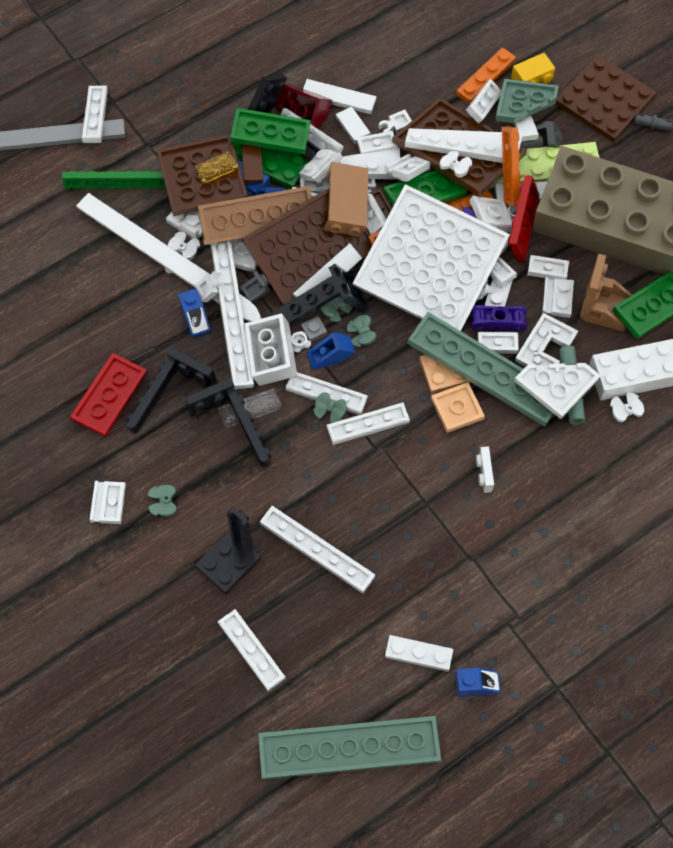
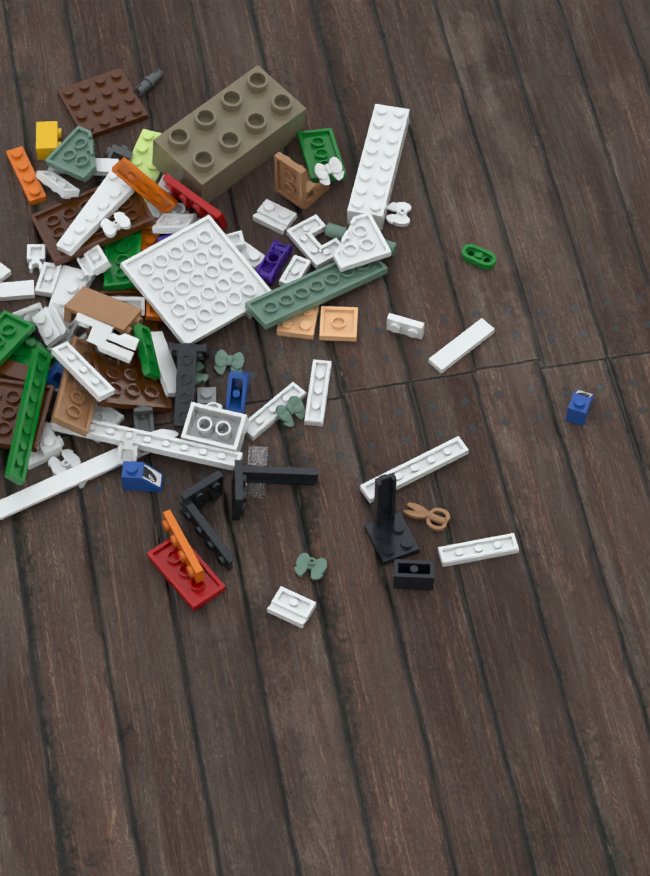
camera: 65 degrees left, 10 degrees down
(130, 373) = (185, 551): none -> orange plate
(186, 598) = (413, 574): none -> black brick
(198, 187) = (27, 416): none -> green plate
(216, 167) = (11, 396): clear yellow plate -> none
(263, 207) = (83, 371): none -> white plate
(269, 579) = (422, 513): none -> medium nougat piece
(309, 209) = (102, 332): none -> white plate
(324, 253) = (147, 352): none -> green plate
(349, 747) = (593, 511): sand green plate -> none
(419, 653) = (537, 435): white plate -> none
(493, 533) = (461, 345): none -> white tile
(547, 267) = (244, 210): white plate -> none
(614, 506) = (480, 257): none -> green plate
(626, 312) = (322, 171): none -> white piece

